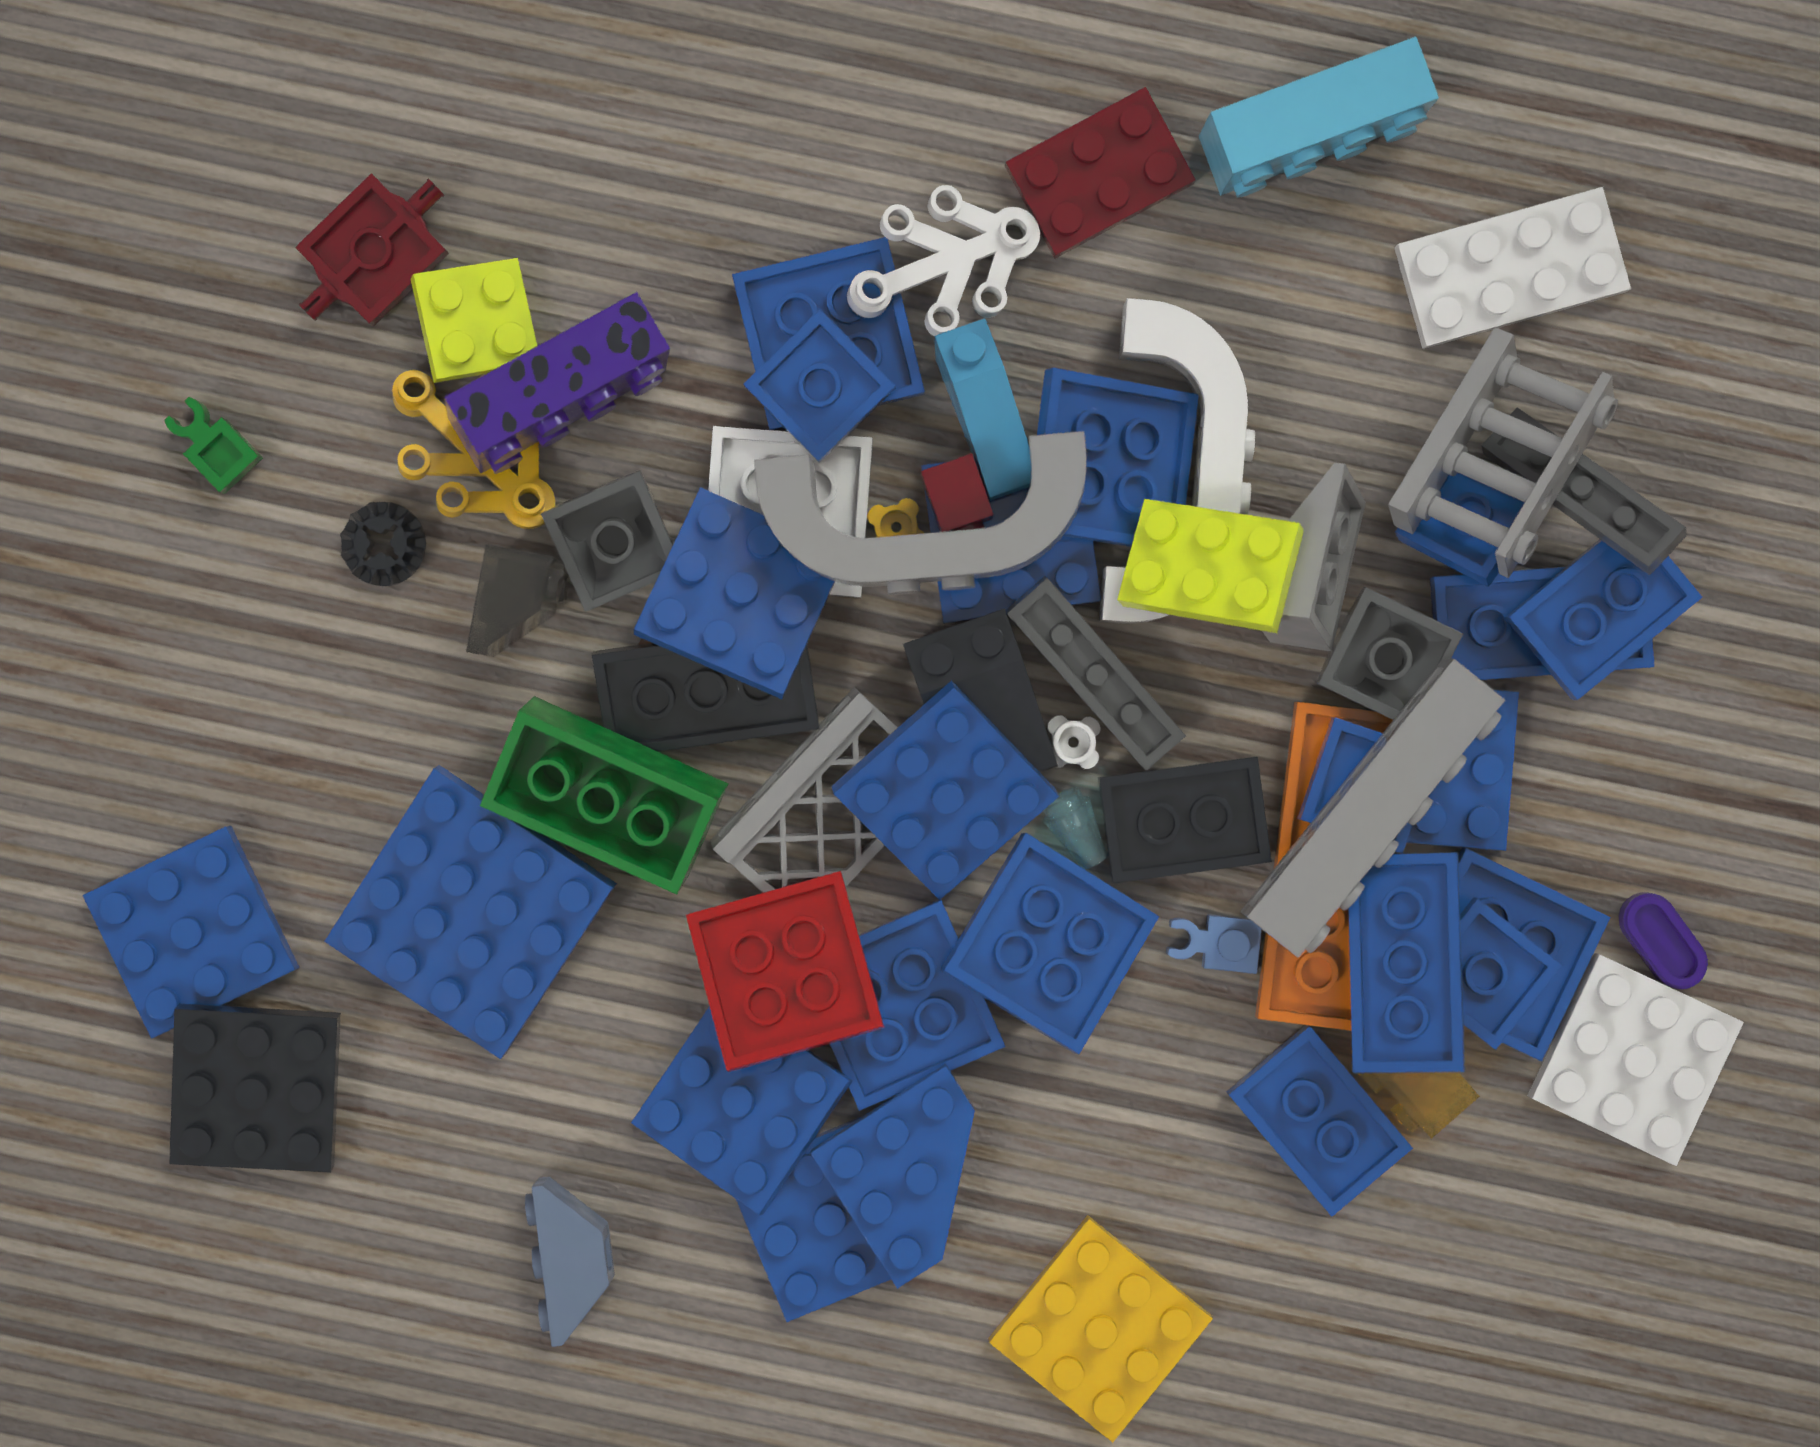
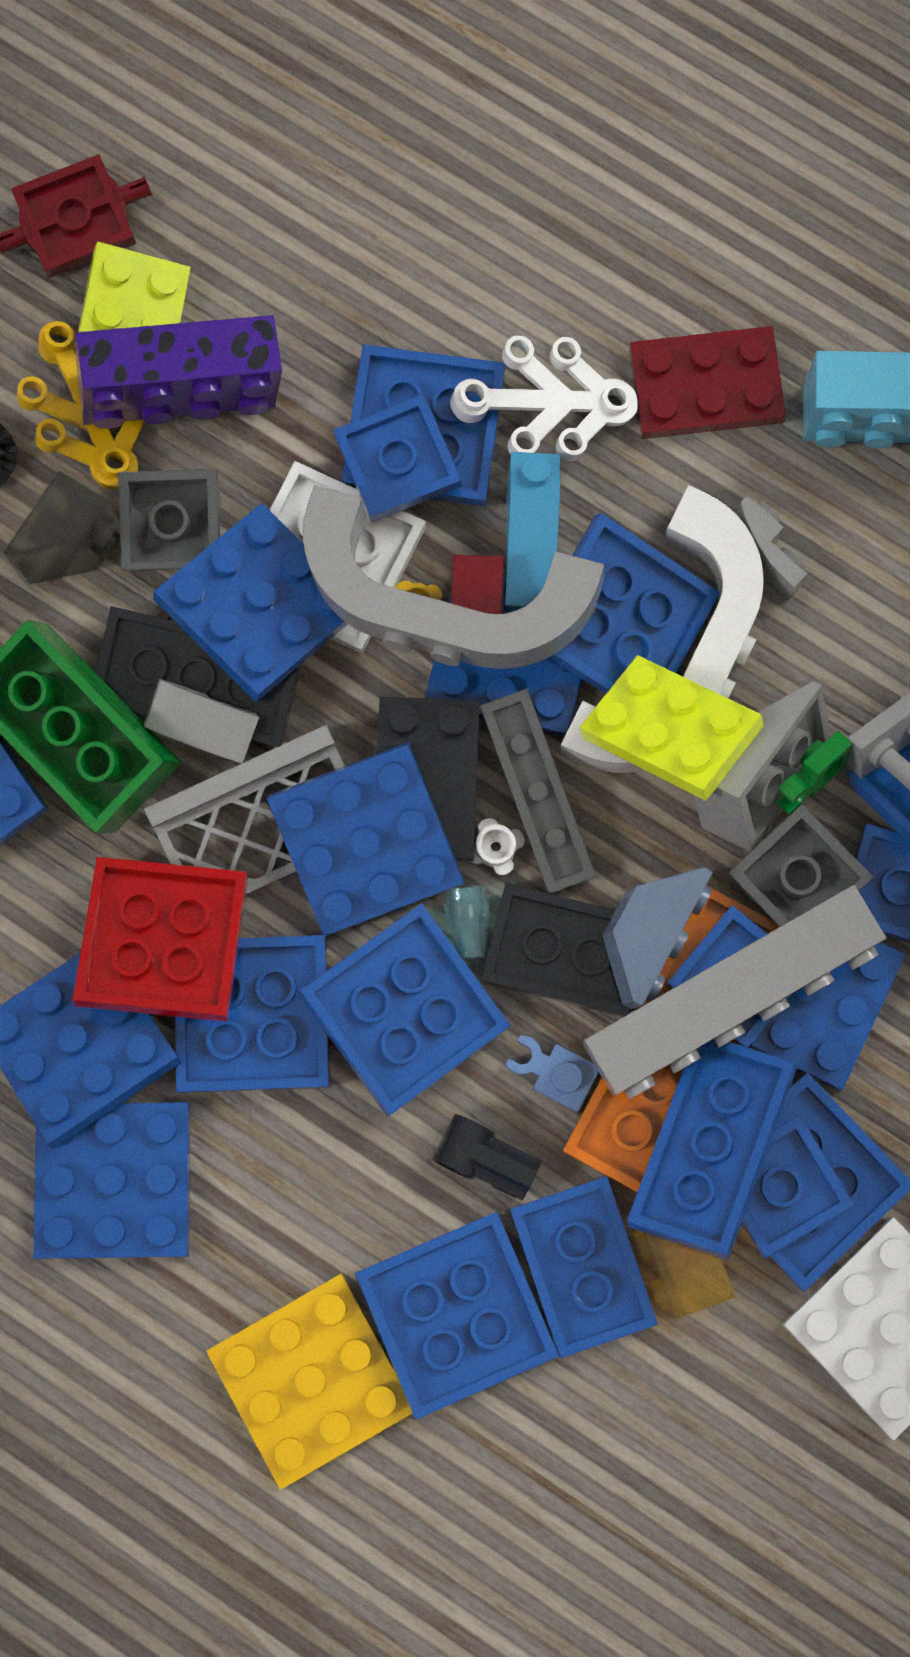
camera: 30 degrees right, 10 degrees down
(732, 738) = (200, 721): none -> light grey slope
(903, 1172) = (191, 1159): blue plate -> none
(1172, 1053) = (475, 1152): none -> black piece
(1216, 1215) = (456, 1315): none -> blue plate
(1249, 342) = (779, 565): none -> light grey slope
(1263, 771) = (649, 930): none -> sand blue slope
(1368, 540) = (819, 766): none -> green plate

